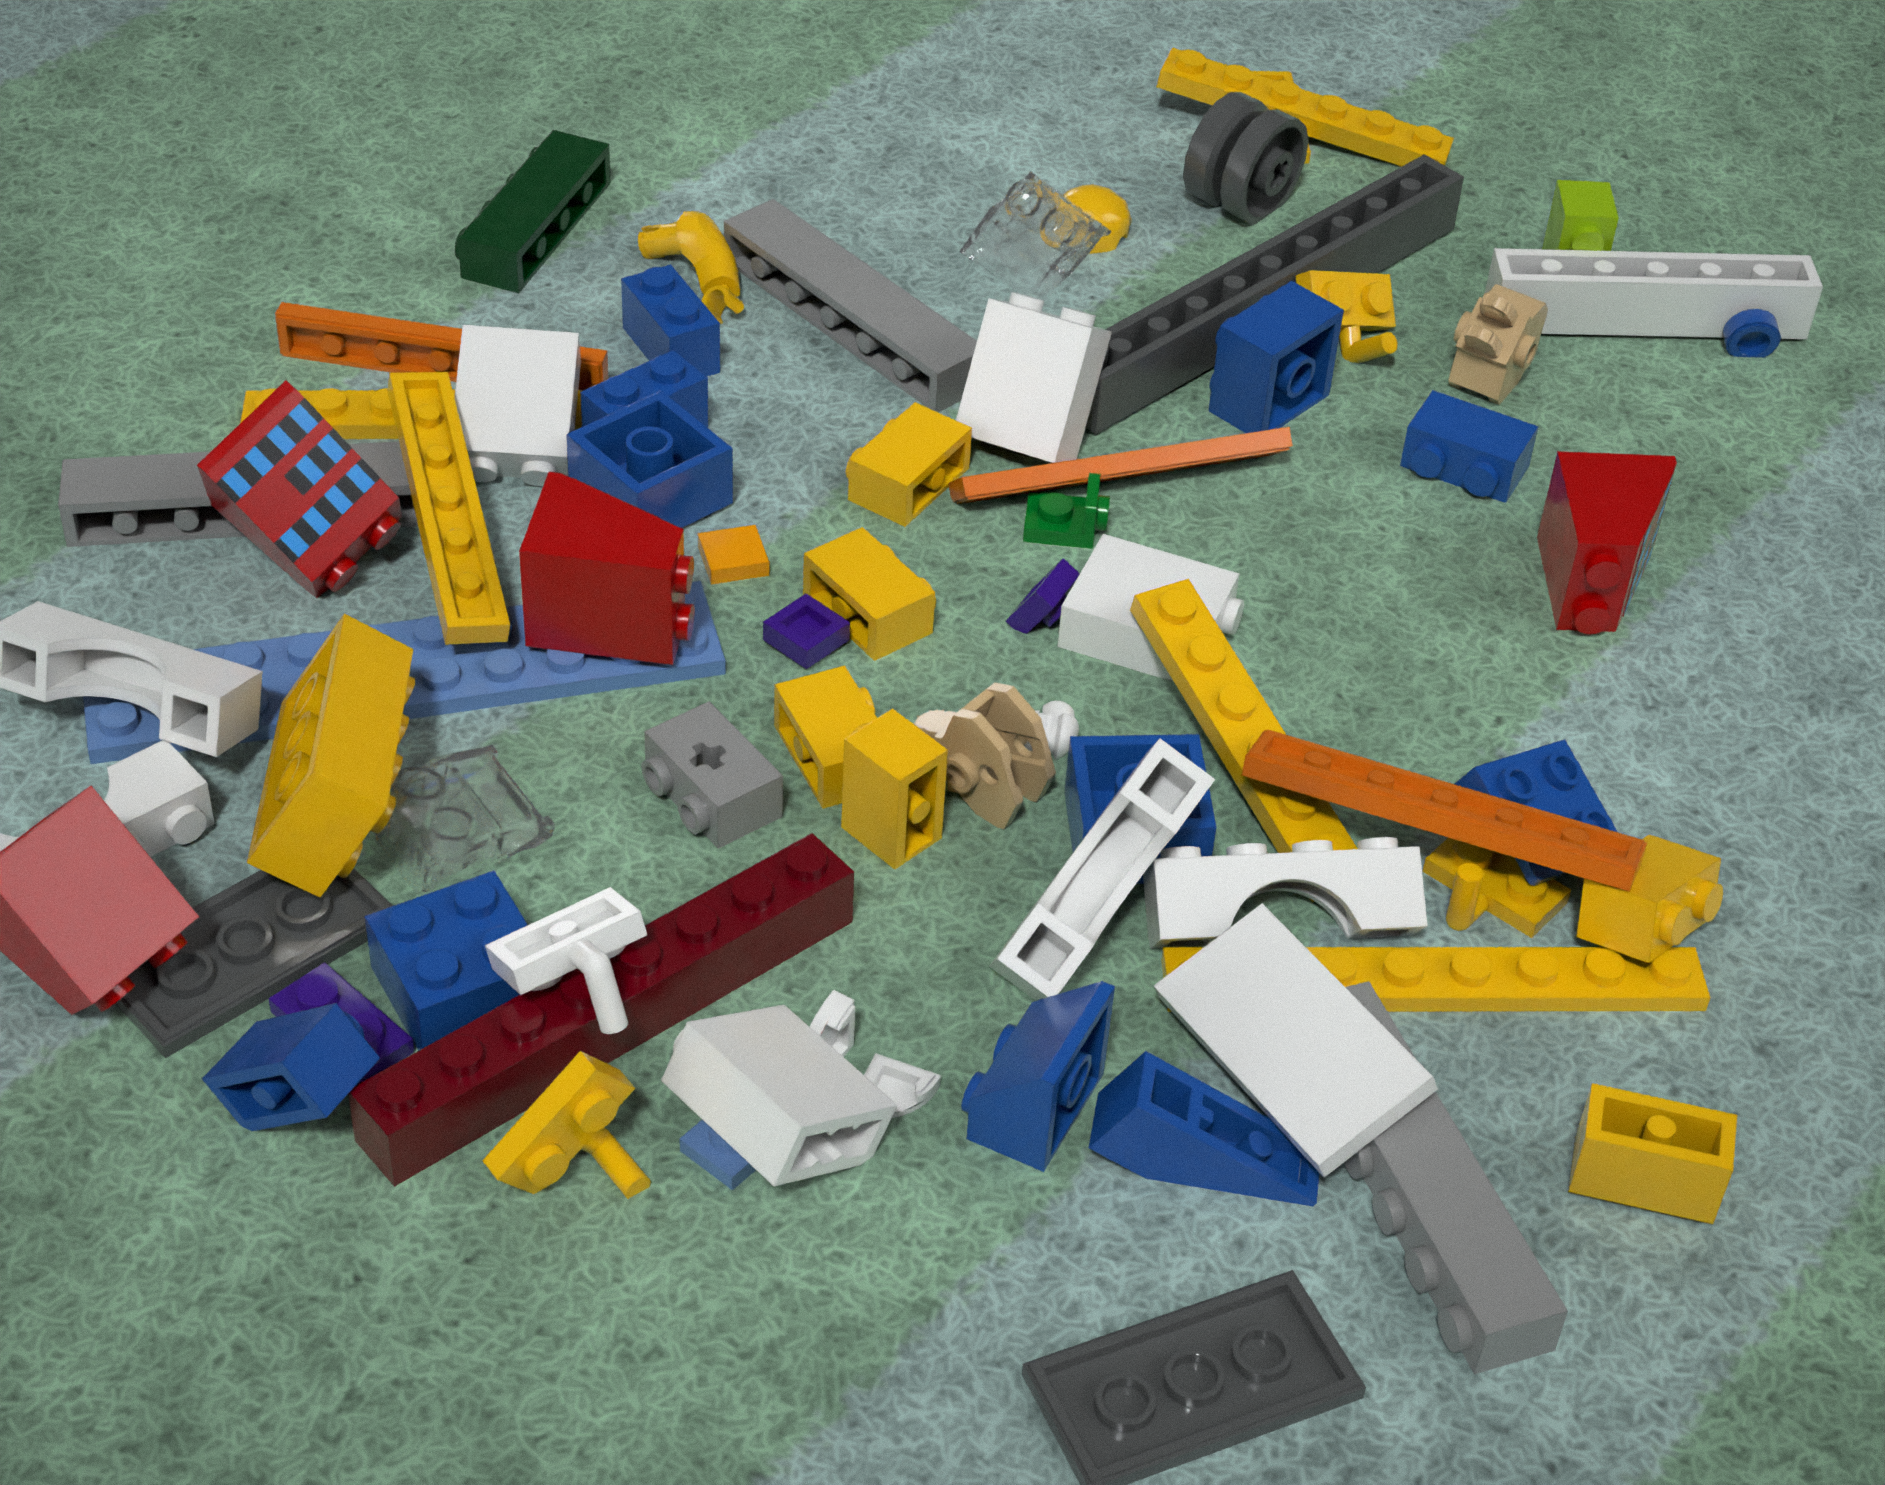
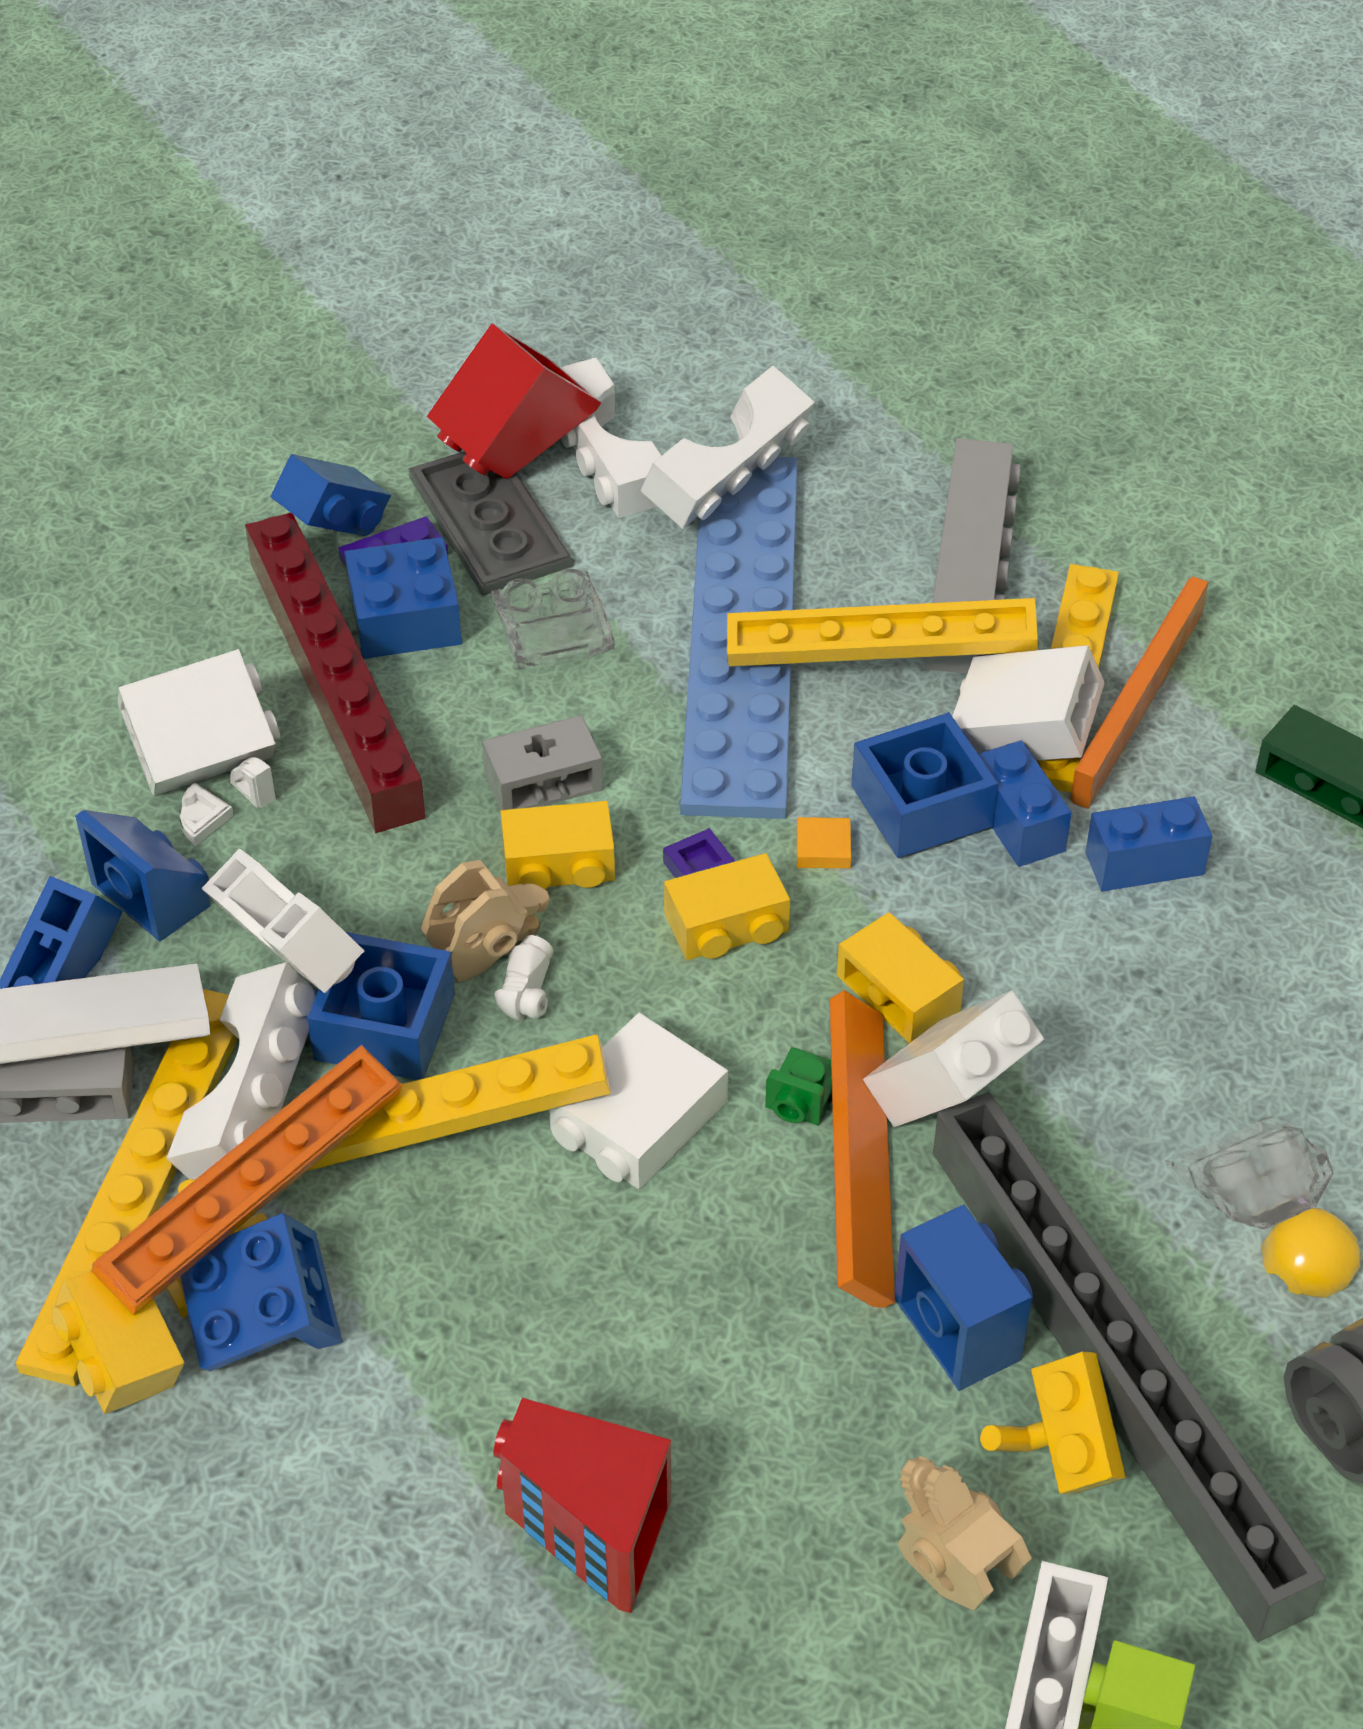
camera: 110 degrees right, 5 degrees up
(300, 492) = (906, 538): red slope -> none
(333, 758) = (600, 532): yellow brick -> none
(562, 1123) = (221, 615): yellow plate -> none
(573, 939) = (345, 607): white plate -> none
(603, 576) = (746, 693): red slope -> none
(707, 249) = (1277, 896): yellow arm -> none
(852, 303) = (1174, 991): light grey brick -> none
(893, 788) = (455, 829): yellow brick -> none
(1044, 599) = (681, 1025): dark purple plate -> none
(1468, 446) = (805, 1462): blue brick -> none

